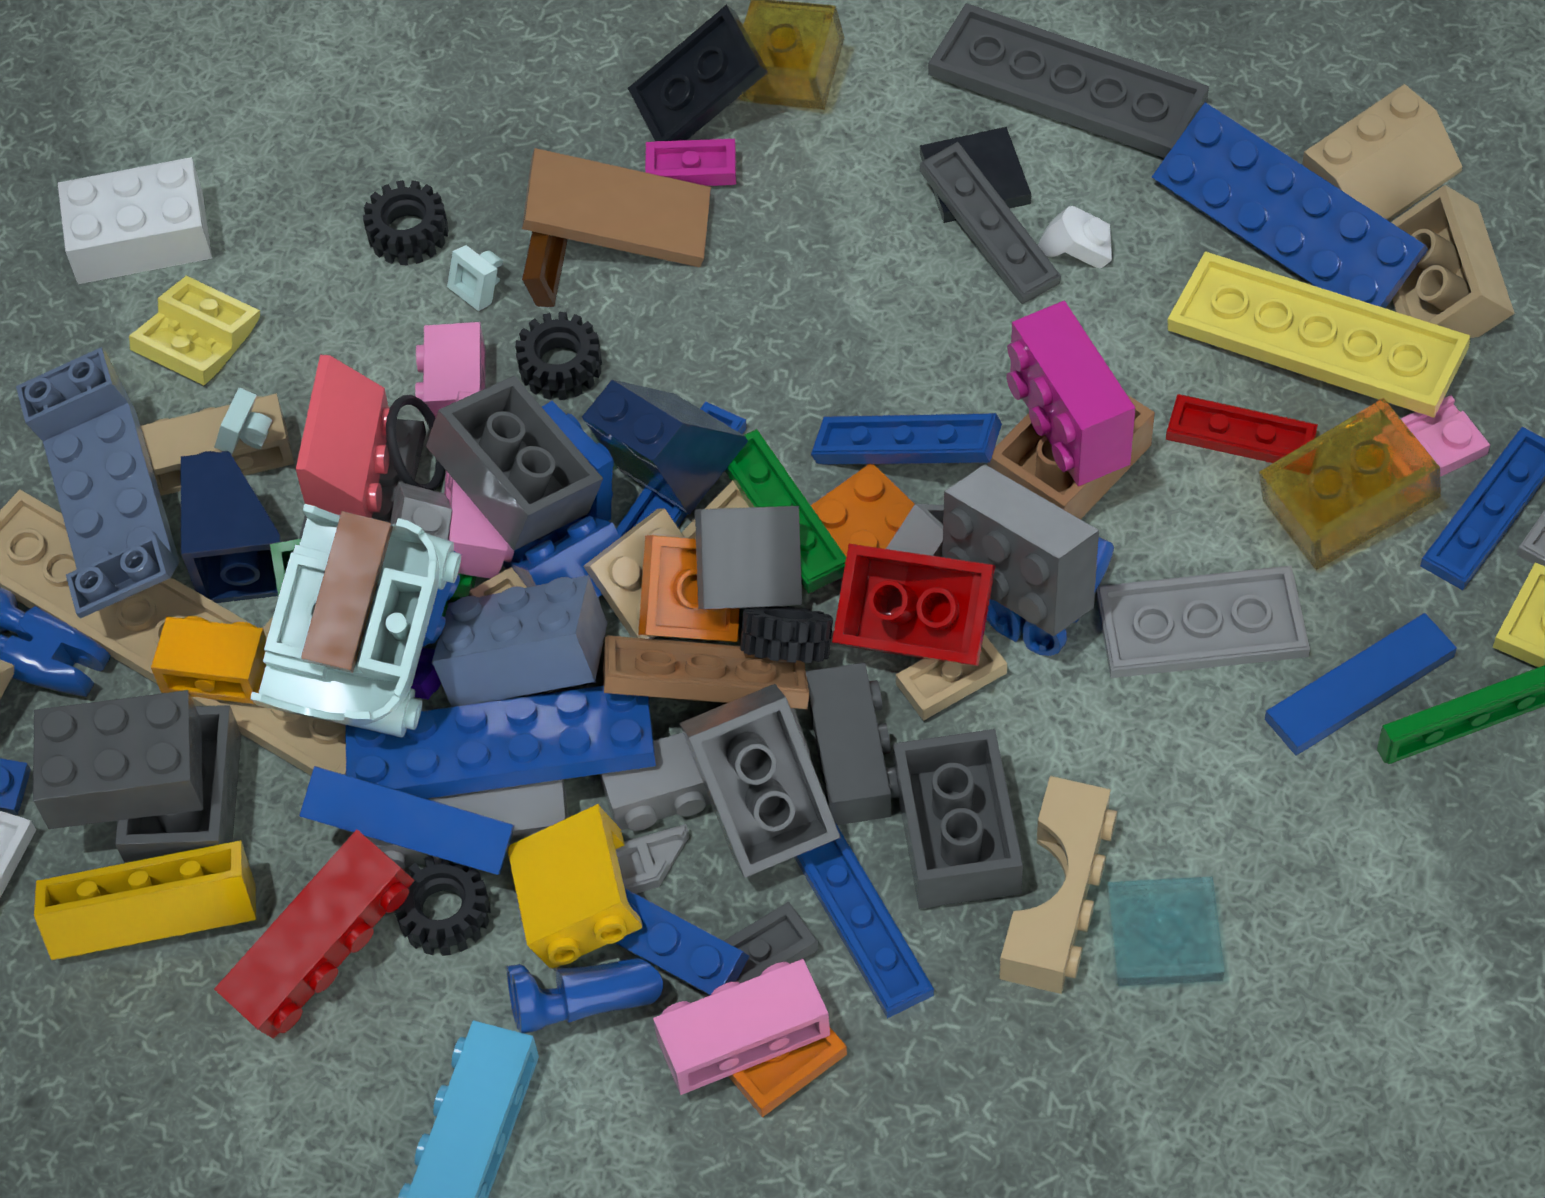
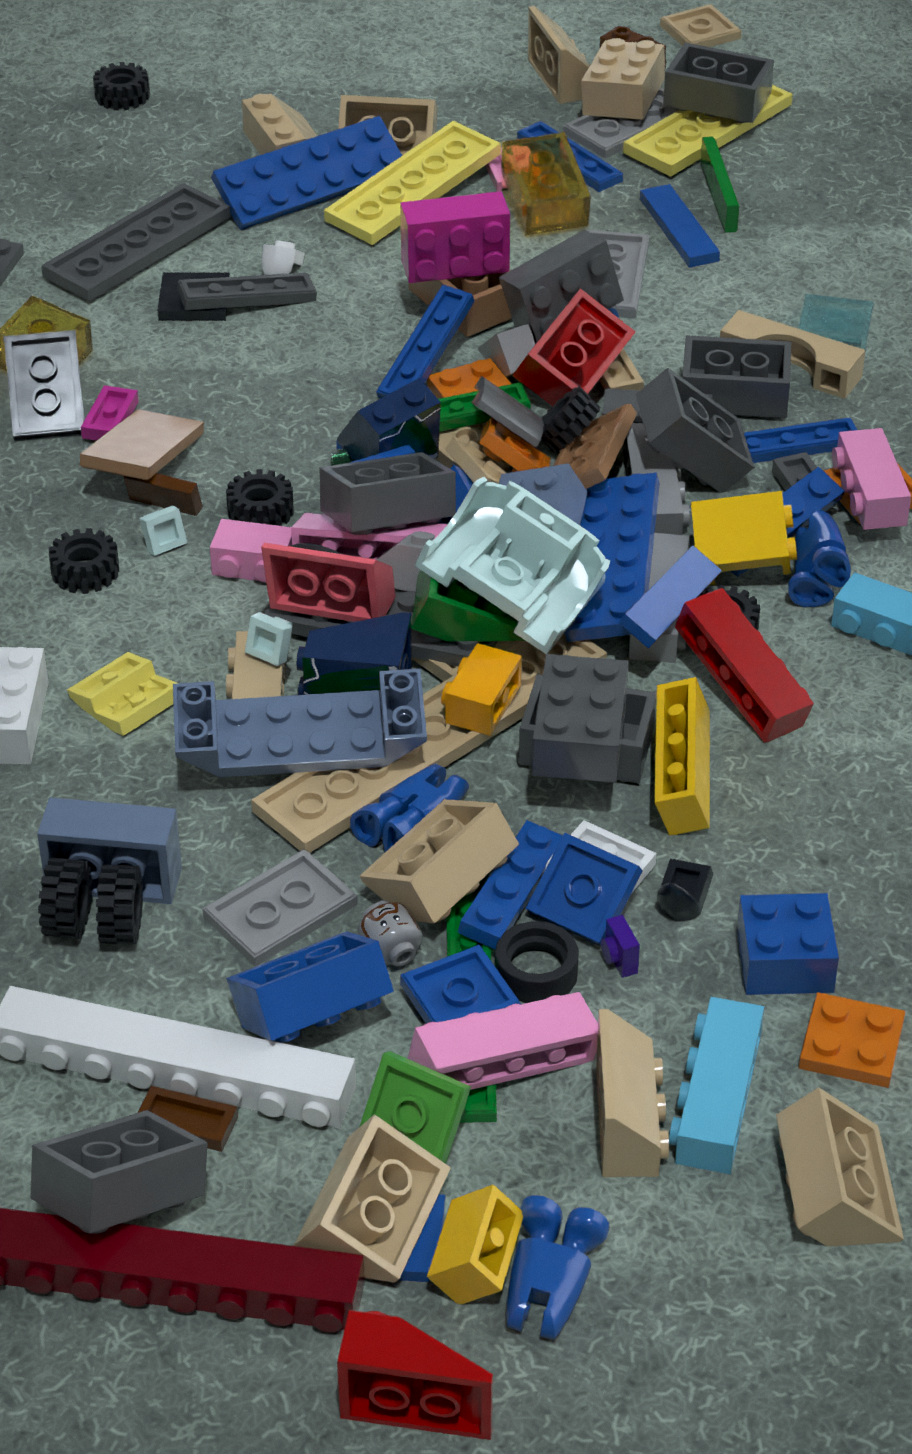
camera: 80 degrees left, 15 degrees down
(347, 592) = (503, 546): tile -> none

